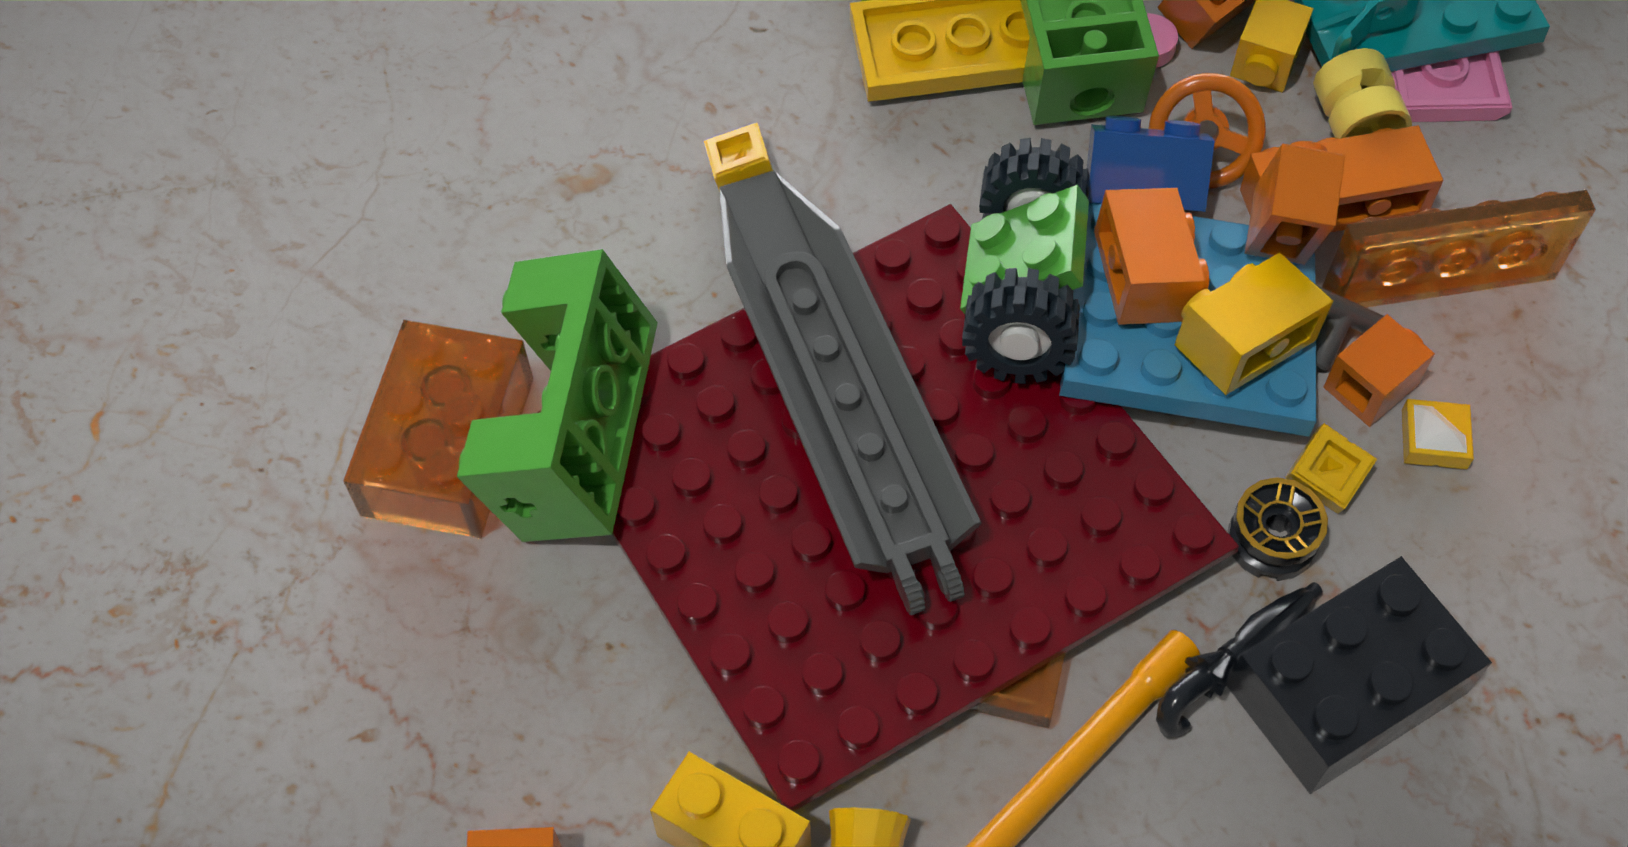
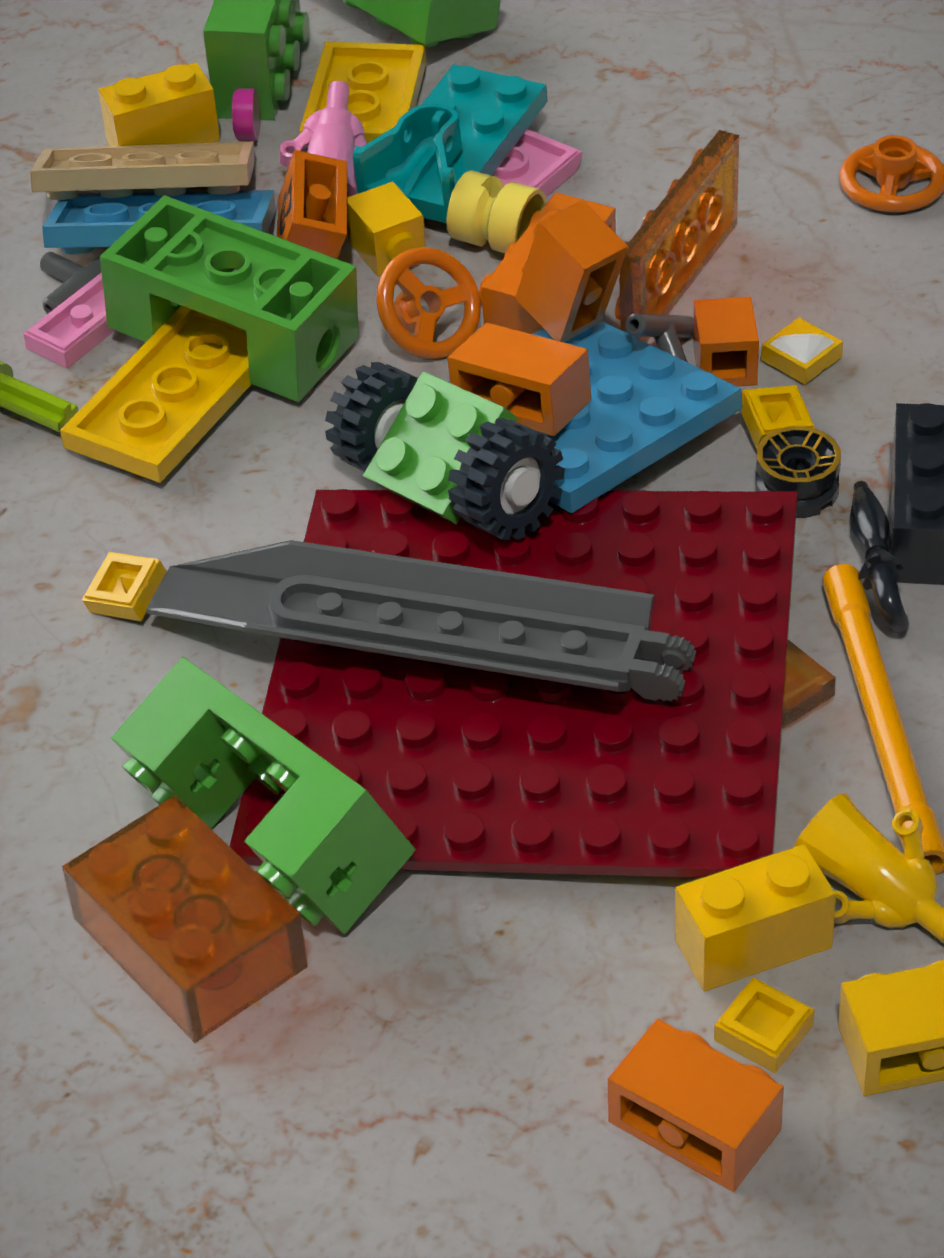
camera: 50 degrees left, 15 degrees down
(1142, 158) = (426, 337): blue brick -> none
(1251, 322) = (634, 358): yellow brick -> none

